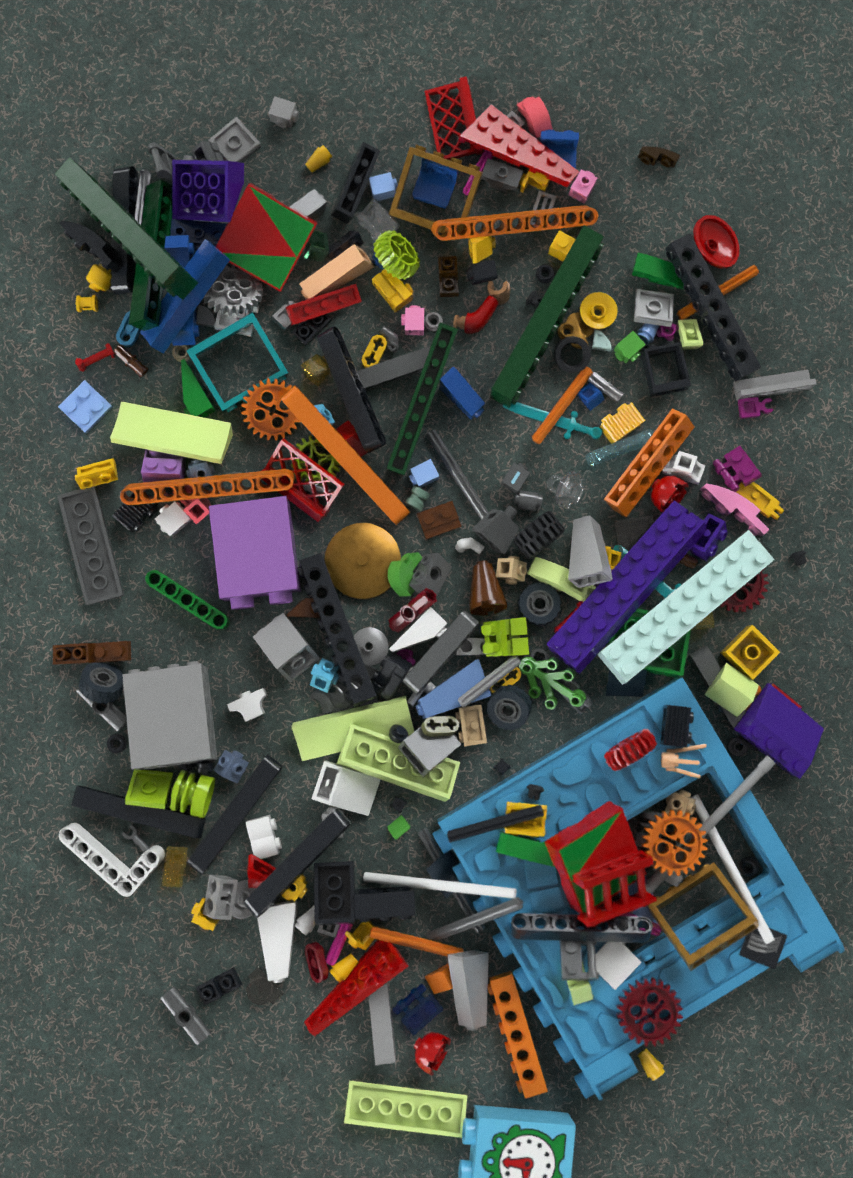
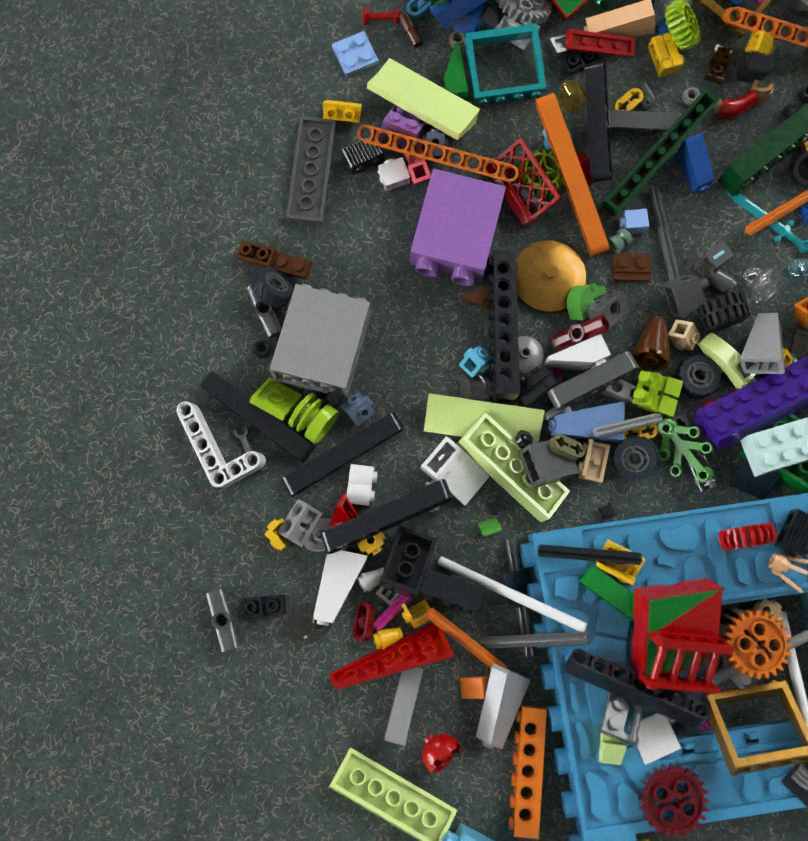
camera: 25 degrees right, 5 degrees down
(174, 866) = (268, 479): clear yellow slope -> none
(178, 597) = (374, 240): green beam -> none
(249, 704) = (396, 361): white brick -> none
(265, 425) = (507, 126): orange gear -> none
(286, 647) = (450, 324): light grey slope -> none
(413, 320) = (674, 88): bright pink brick -> none
(421, 1013) = (443, 712): clear blue plate -> none
(468, 543) = (652, 298): white arm -> none
(534, 790) = (637, 540): black piece -> none

